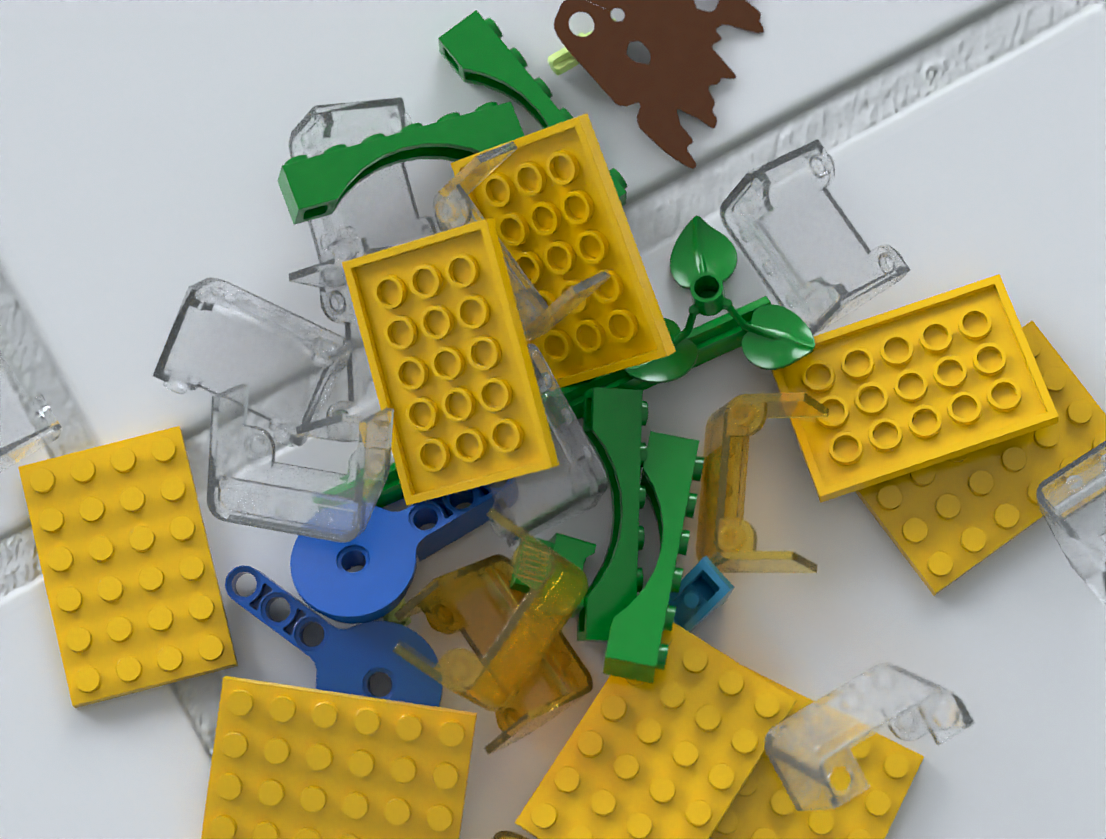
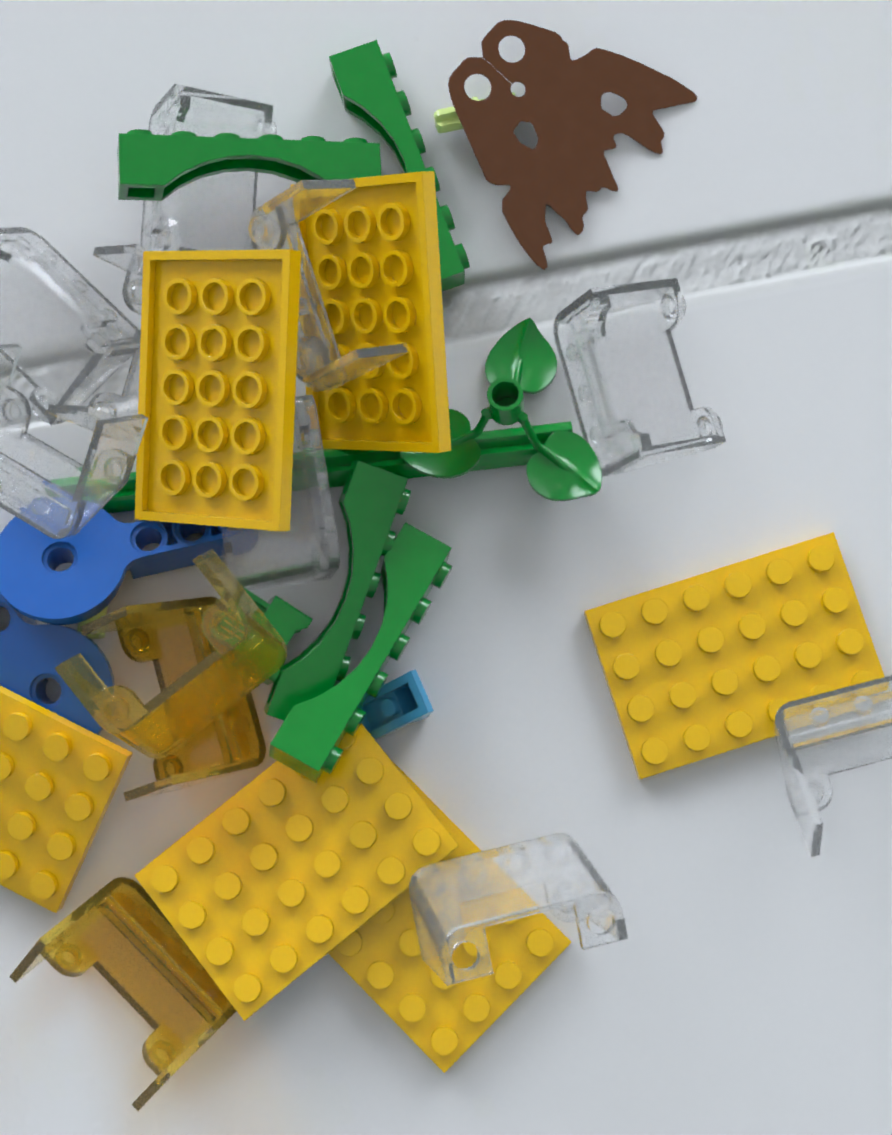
camera: 20 degrees right, 5 degrees up
(721, 529) = (442, 650): clear yellow windscreen -> none
(916, 388) = (689, 565): yellow plate -> none

